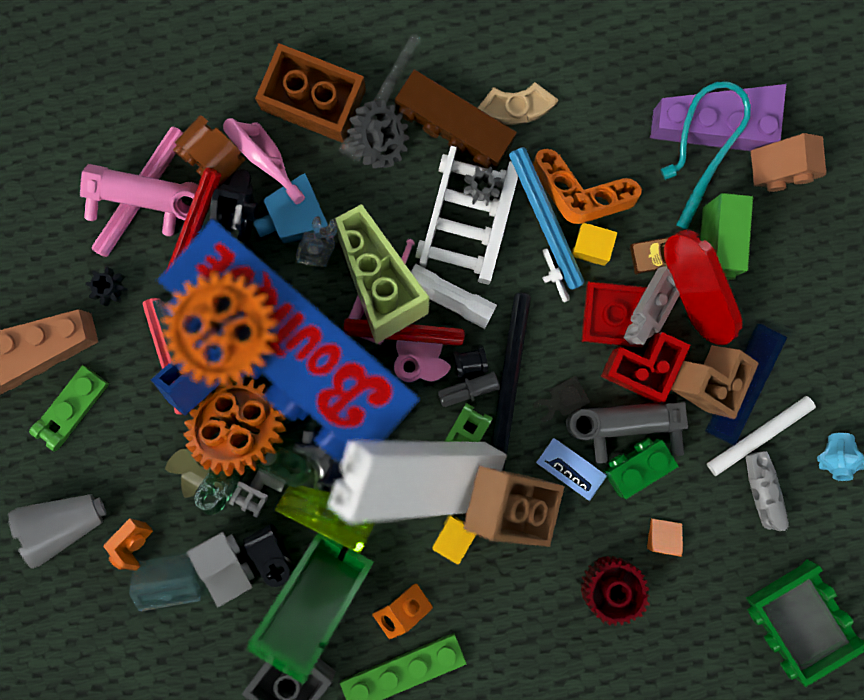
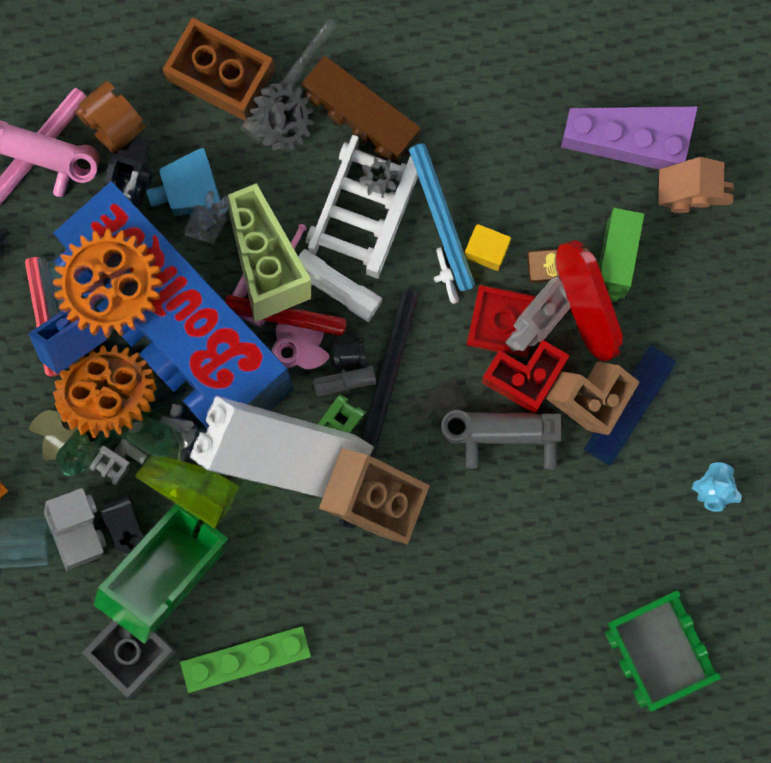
camera: 15 degrees right, 5 degrees down
(197, 211) = (90, 178): red axle -> none
(262, 154) = (163, 123): bright pink piece -> none
(404, 612) = (253, 597): orange bracket -> none
(453, 540) = (312, 527): yellow panel -> none
(519, 106) = (427, 102): tan tile -> none
(571, 469) = (440, 472): light blue slope -> none
(582, 198) = (482, 201): orange beam -> none
(630, 599) = (486, 594): dark red brick -> none
(640, 468) = (509, 476): green brick -> none
(665, 537) = (529, 551): orange slope -> none
(671, 170) = (573, 181): teal piece -> none
(761, 435) = (639, 459): white piece -> none
(766, 491) = (637, 514): light grey hinge -> none

